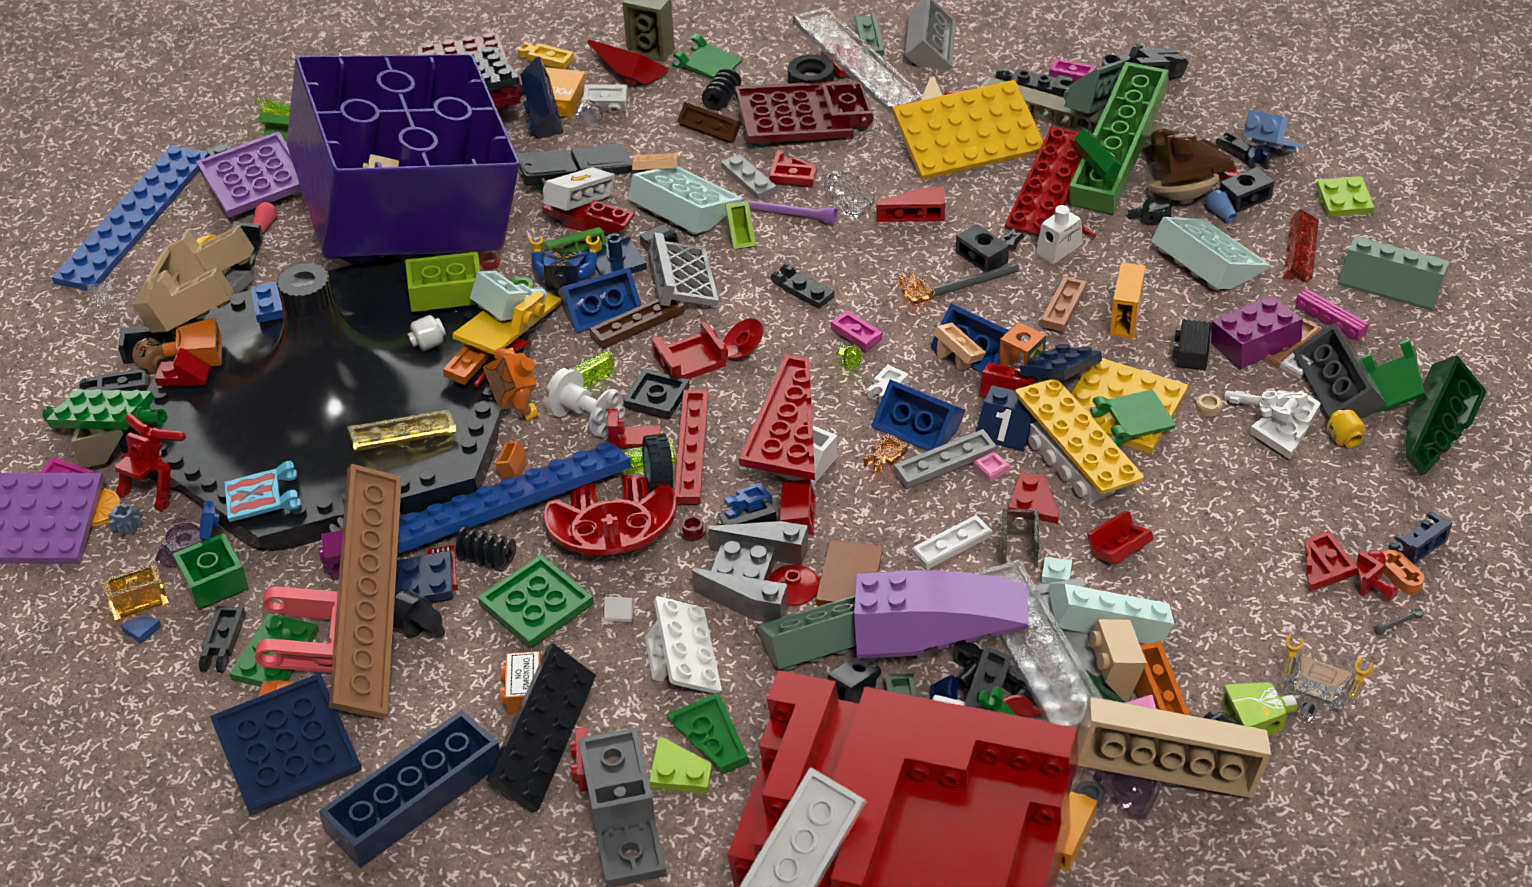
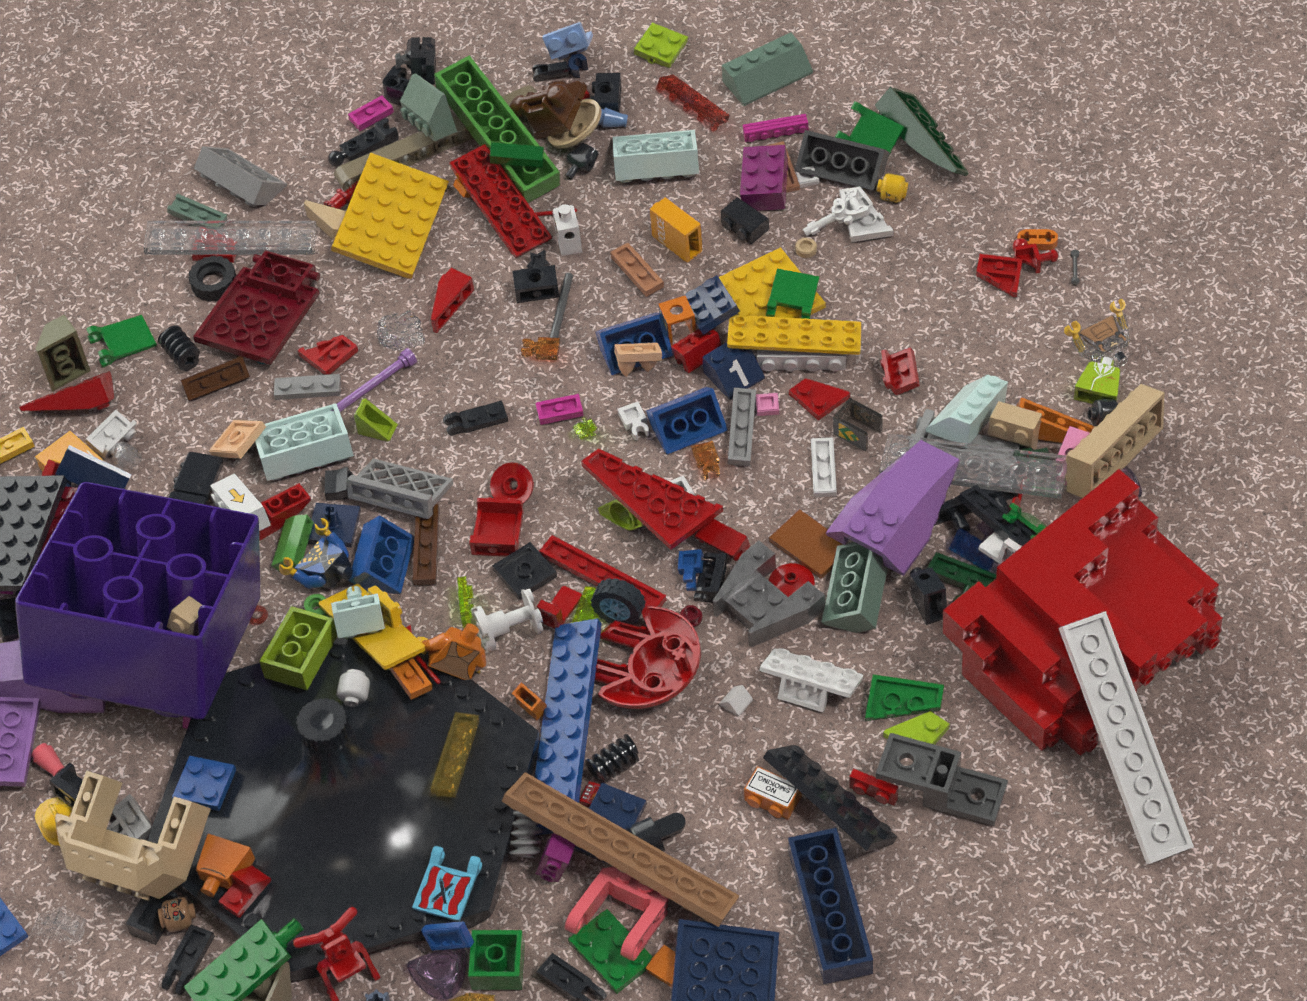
camera: 55 degrees left, 10 degrees up
(535, 600) = (691, 750): green plate -> none
(1056, 570) = (897, 422): light aqua plate -> none
(1423, 538) = (1018, 210): dark blue hinge -> none

